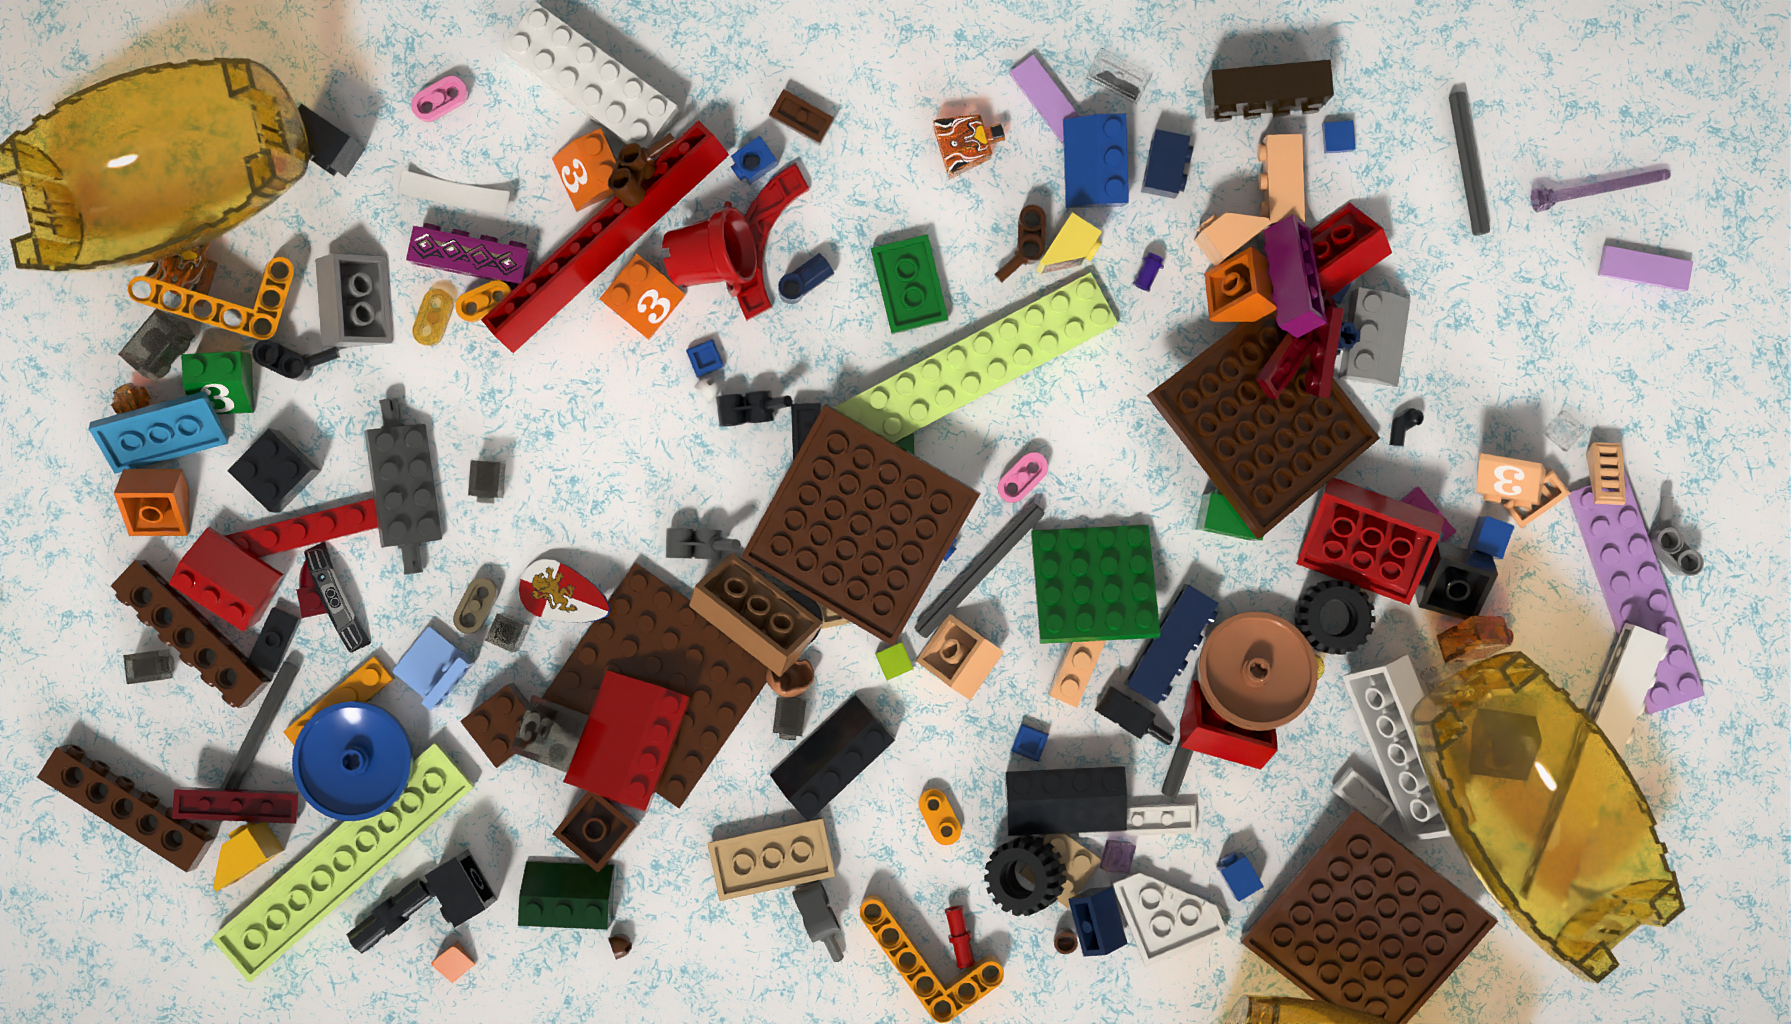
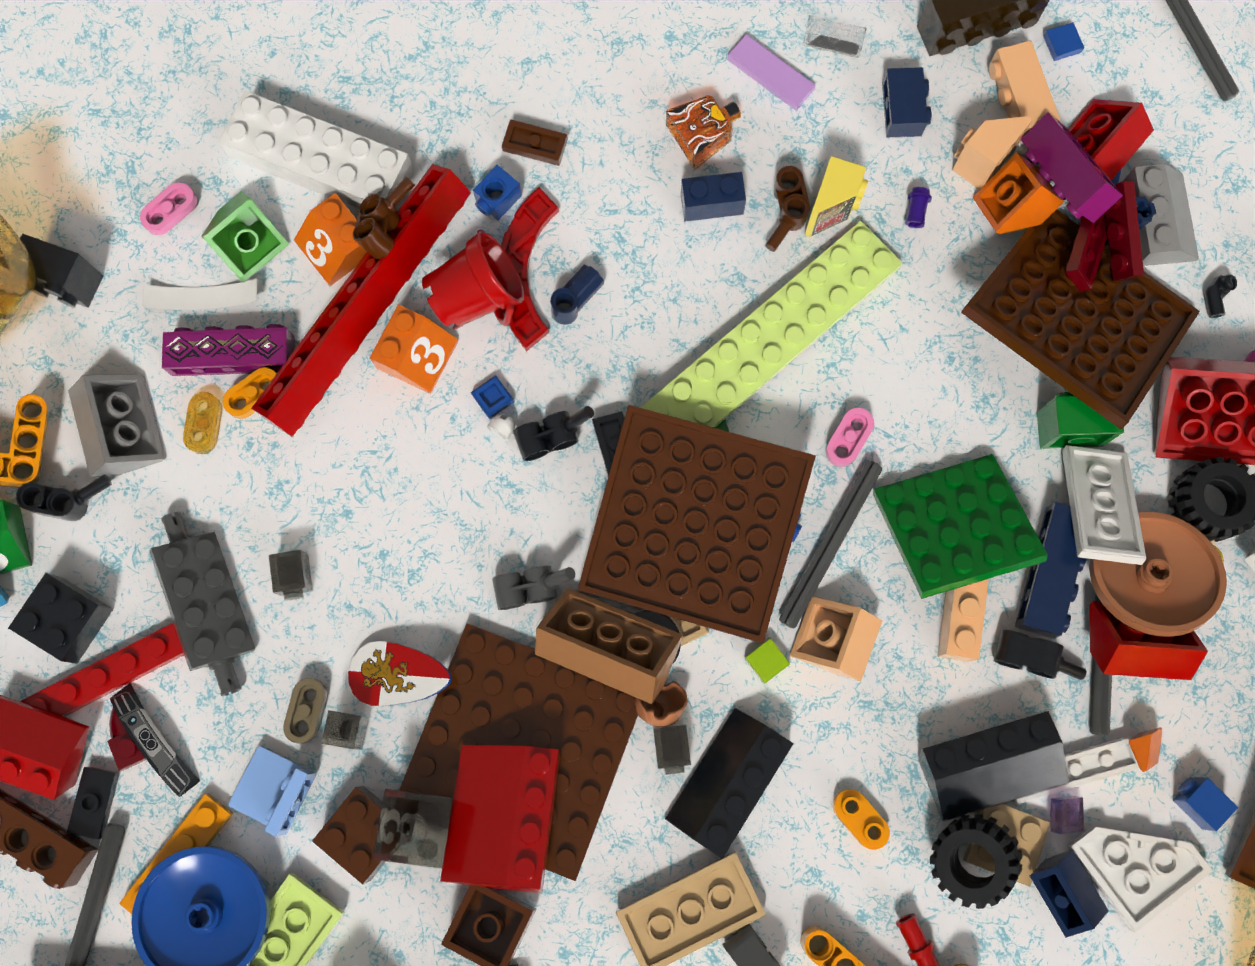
camera: 15 degrees left, 10 degrees down
(505, 145) = (243, 236): none -> bright green slope
(909, 284) = (682, 275): green plate -> none
(956, 215) = (713, 196): none -> dark blue brick
(1029, 742) = (934, 713): blue tile -> none
(1065, 945) = (1038, 930): reddish brown hinge -> none
(1096, 161) = (837, 113): blue slope -> none
(1204, 818) = (1146, 748): none -> orange slope
(1229, 597) = (1103, 505): none -> white tile

